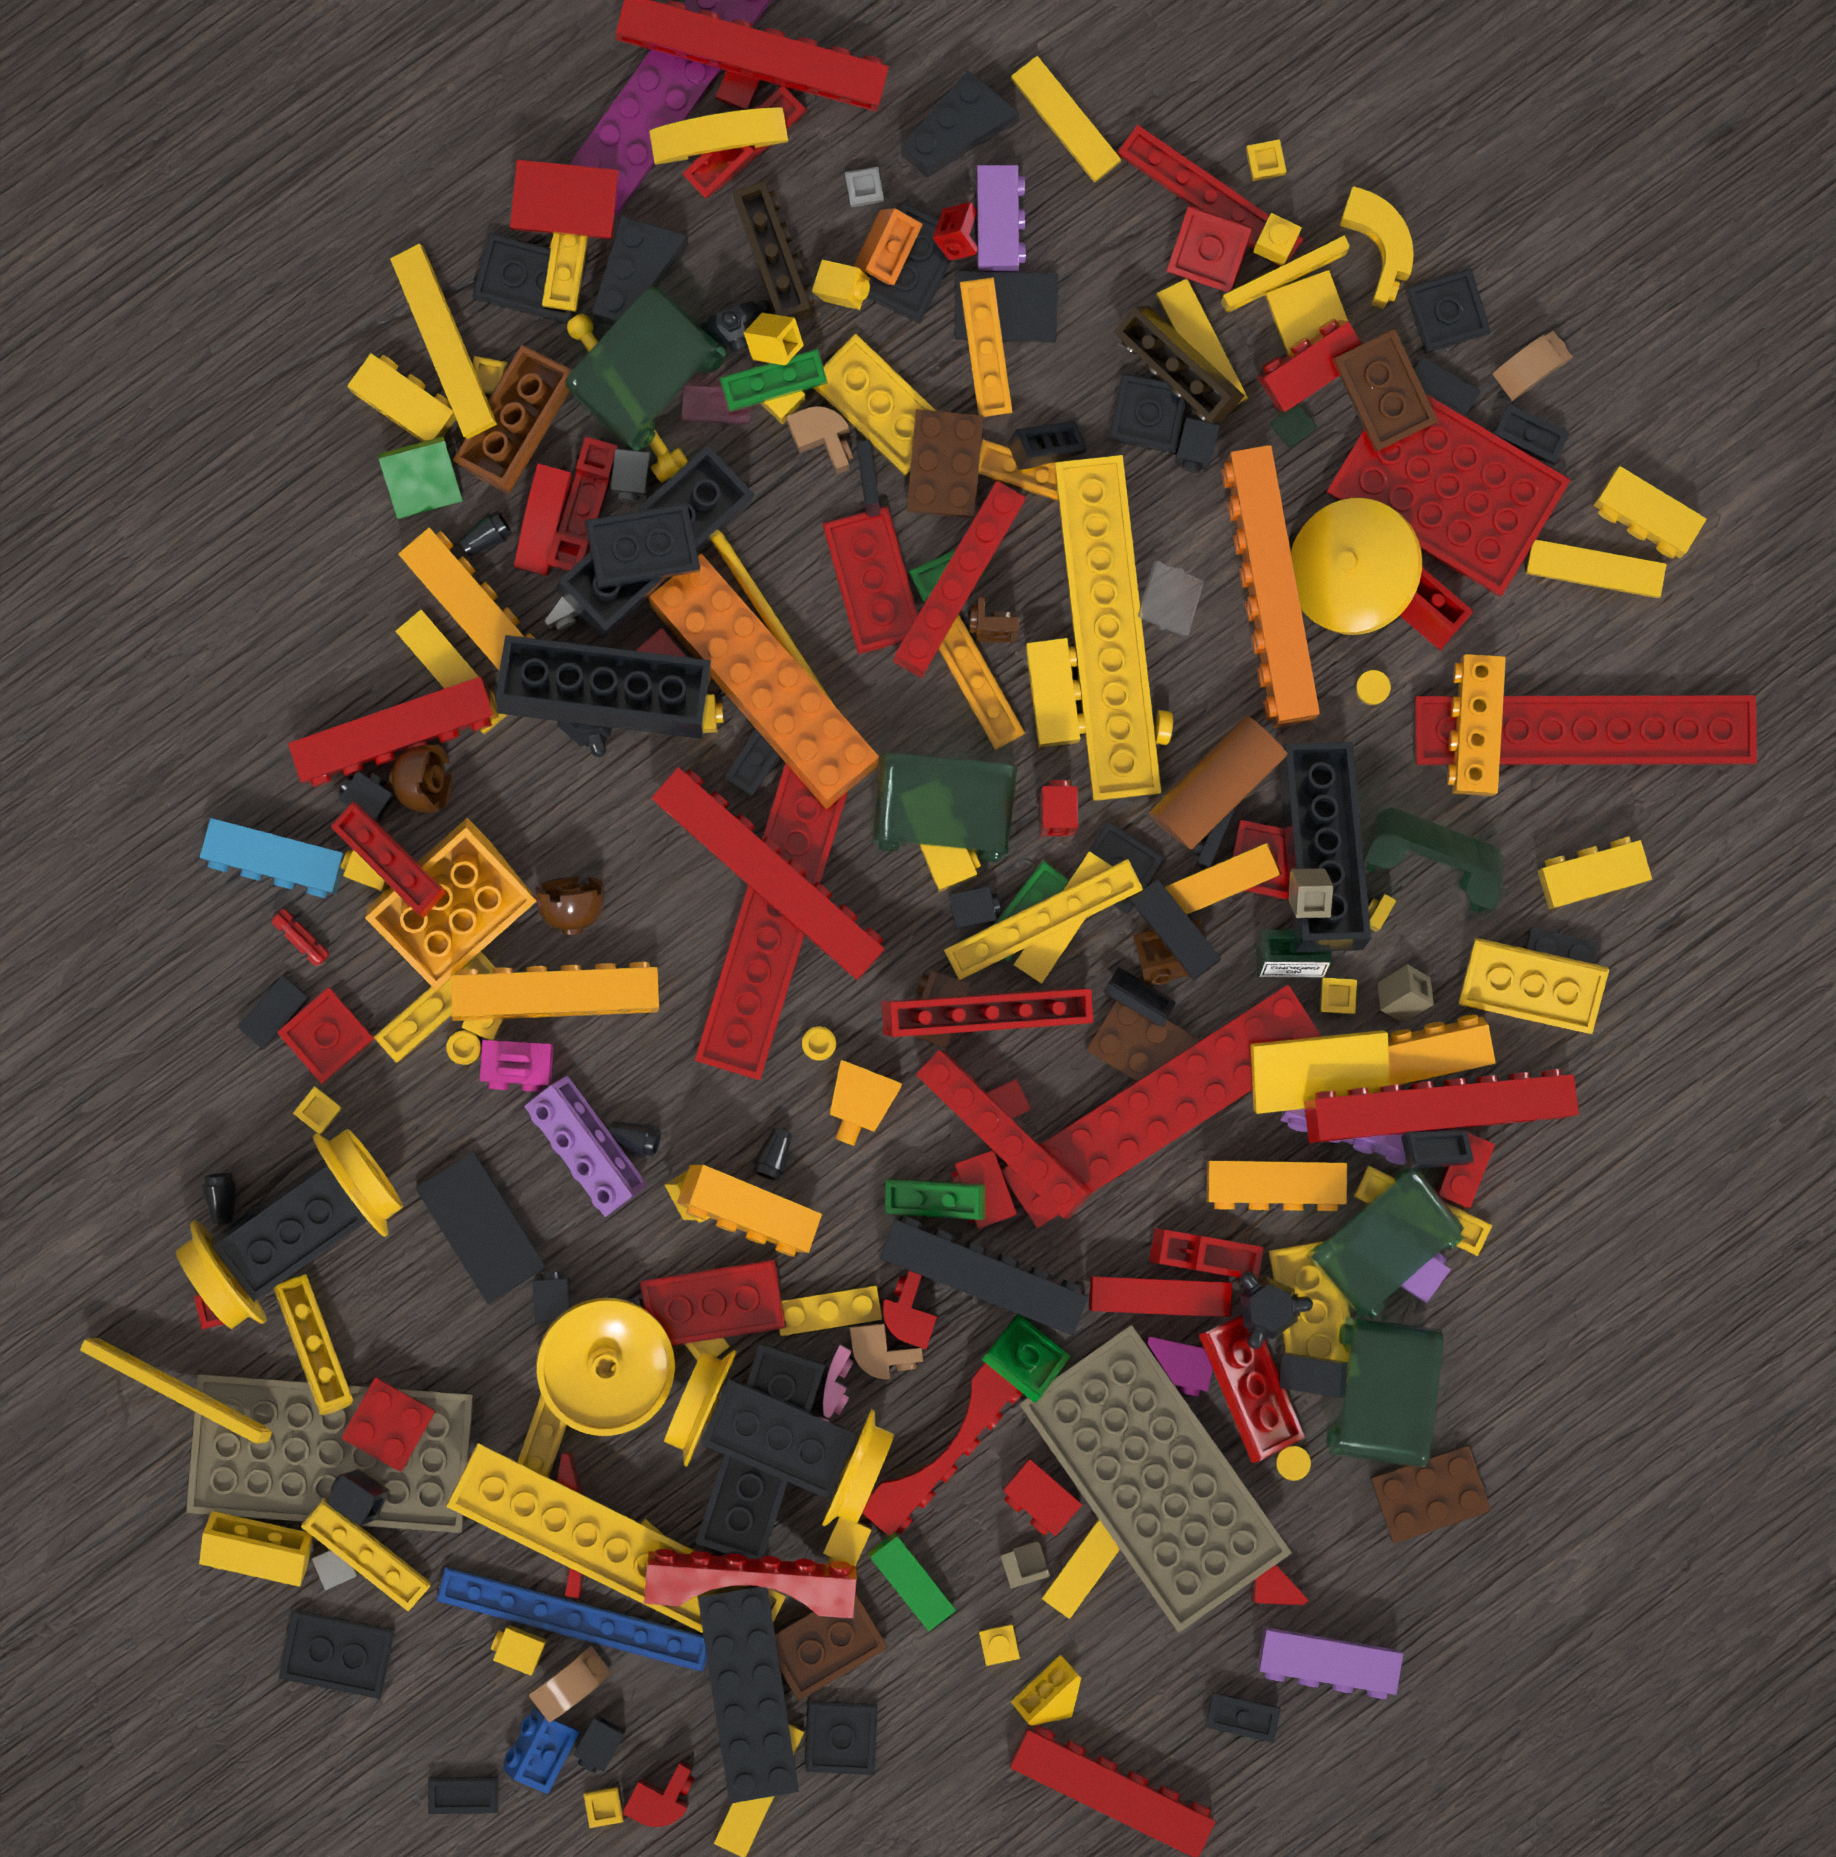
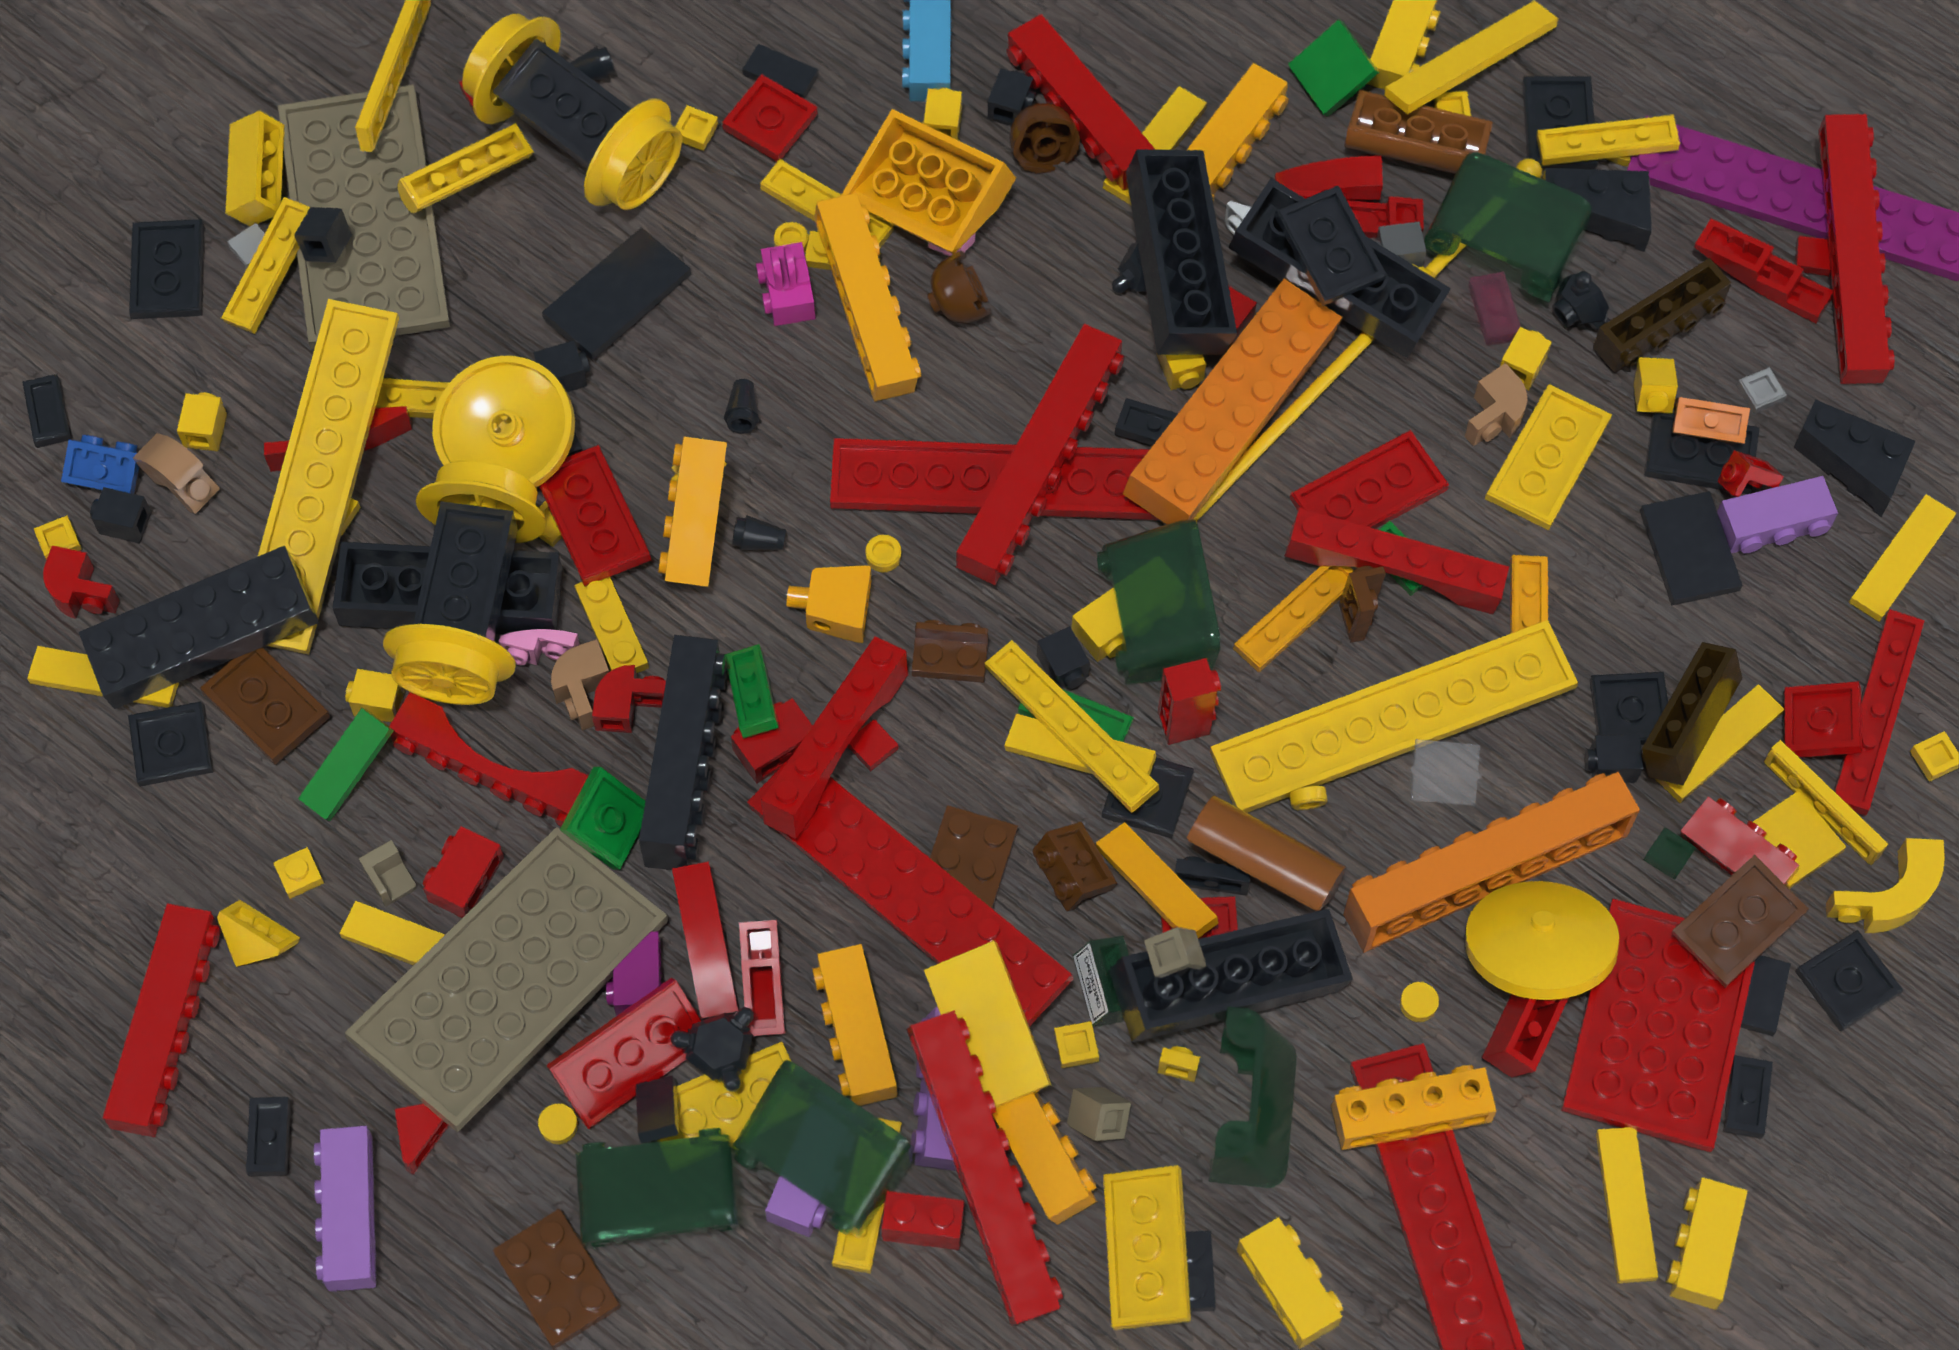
camera: 80 degrees right, 20 degrees down
(300, 937) = (859, 77): red axle -> none
(388, 859) = (954, 112): red tile -> none
(388, 1424) = (401, 251): red plate -> none
(486, 533) = (1299, 140): black cone -> none
(564, 199) = (1646, 118): red tile -> none
(572, 1618) = (245, 453): blue tile -> none
(585, 1146) = (721, 360): medium lavender brick -> none
(718, 133) = (1766, 239): yellow slope -> none
(773, 338) = (1578, 327): yellow brick -> none
(773, 381) = (1537, 340): green tile -> none
(822, 1587) = (319, 664): arch -> none
(868, 478) = (1470, 455): black tile -> none
(945, 463) = (1511, 522): reddish brown plate -> none
(986, 347) = (1641, 534): light orange tile -> none
(987, 1012) = (958, 685): red brick -> none
(1026, 450) = (1549, 610): black slope -> none
(1054, 692) = (1309, 681): yellow brick -> none
(1140, 996) = (1017, 842): black tile -> none
(1175, 930) = (1097, 853): black tile -> none
(1277, 239) = (1858, 775): yellow brick -> none
(1437, 1148) = (936, 1166): black tile -> none
(1532, 365) = (1826, 1072): medium nougat brick -> none

